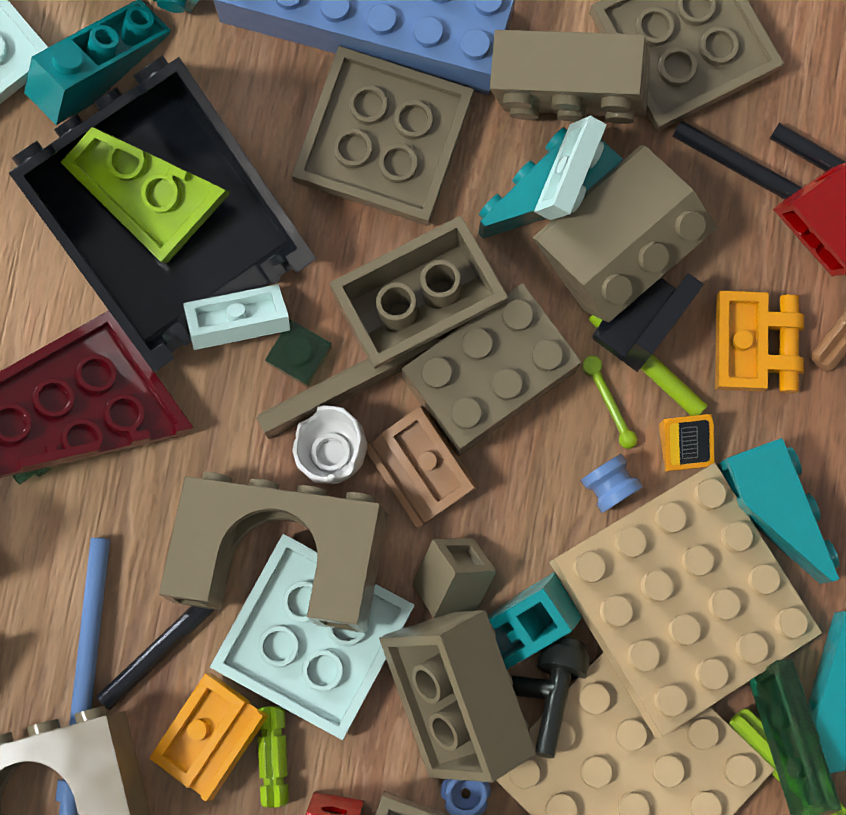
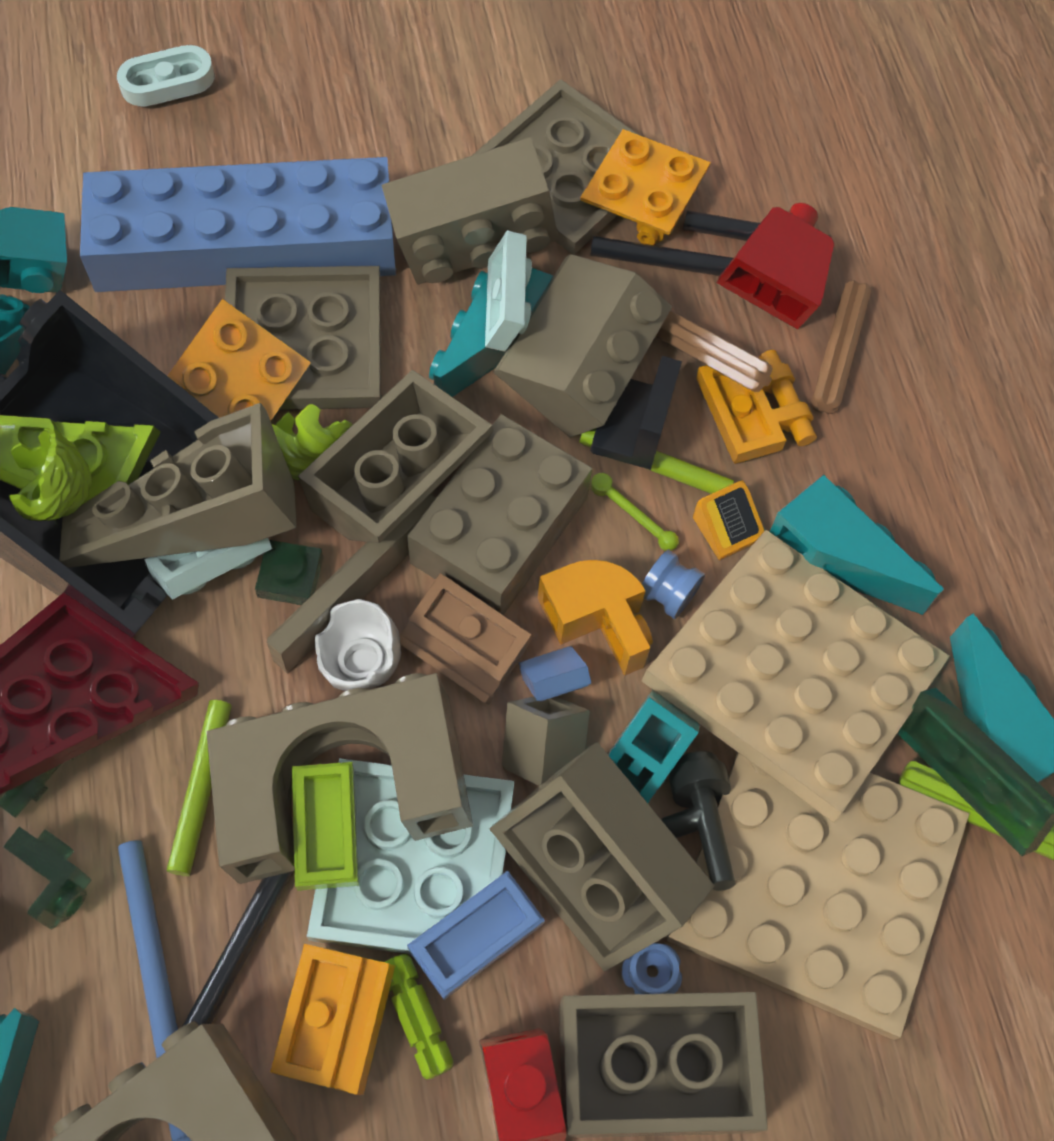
camera: 25 degrees left, 15 degrees down
(35, 531) = (49, 858): none -> clear green bracket
(130, 219) = (60, 478): none -> lime hair
(165, 514) = (197, 795): none -> lime bar
(245, 272) = (206, 497): none -> dark tan wedge
(252, 586) = (324, 826): none -> lime tile
(311, 161) = (237, 365): none -> light orange hinge
(337, 717) = (475, 935): none -> medium blue tile
(346, 248) = (309, 442): none -> lime hair
(483, 525) = (555, 673): none -> medium blue tile
(545, 471) = (597, 597): none -> light orange brick
(739, 284) = (715, 352): none -> medium nougat axle
(749, 86) = (645, 184): none -> light orange hinge

